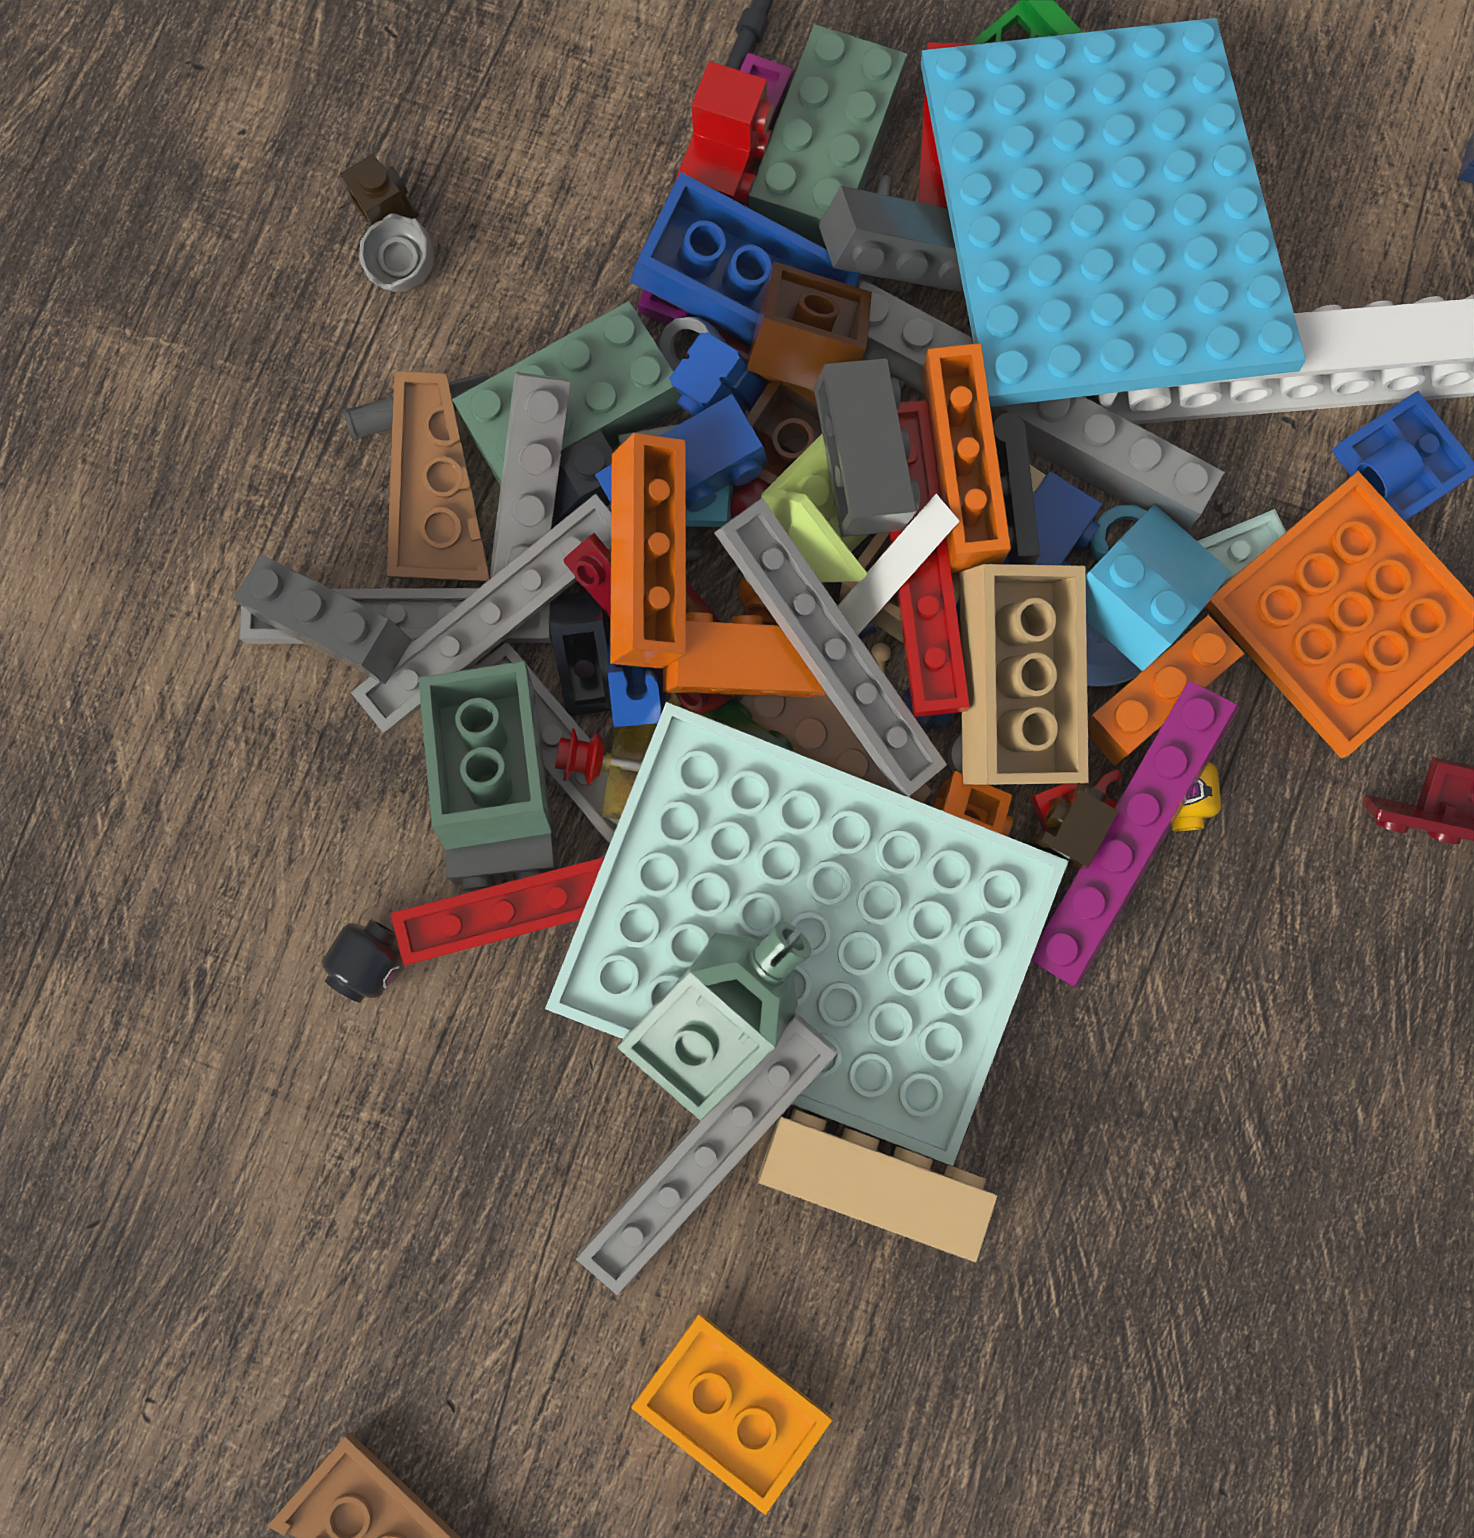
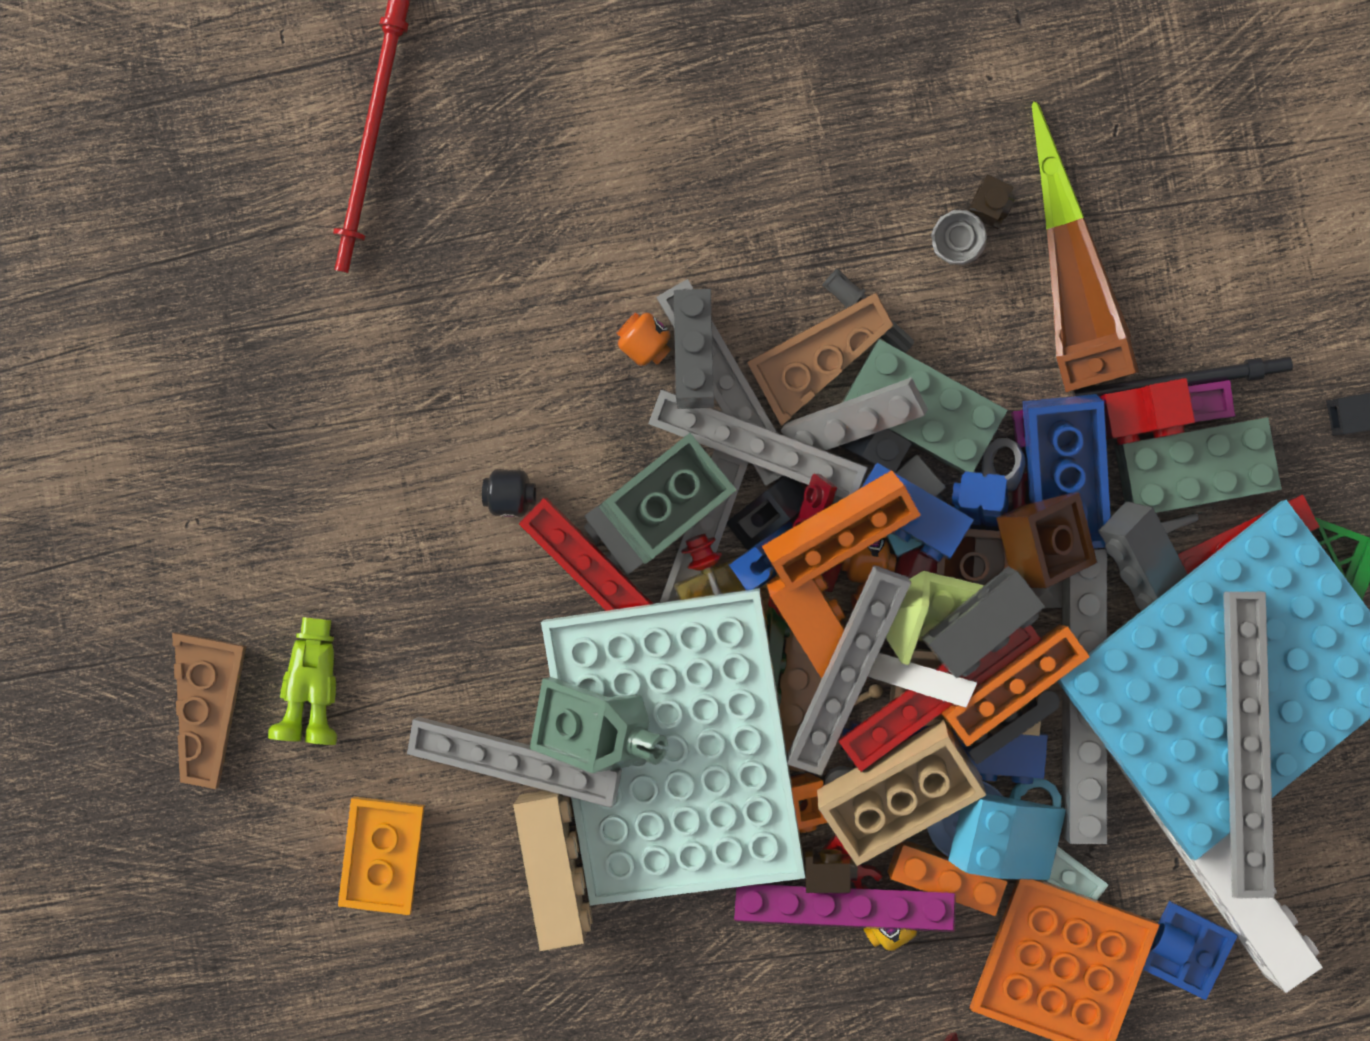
camera: 60 degrees right, 10 degrees up
(280, 682) = (644, 339): none -> orange head
(443, 1370) = (309, 680): none -> lime piece
(585, 165) = (1088, 321): none -> dark orange plate
(711, 569) = (860, 564): none -> orange head
(1198, 222) = (1248, 745): none -> light grey plate

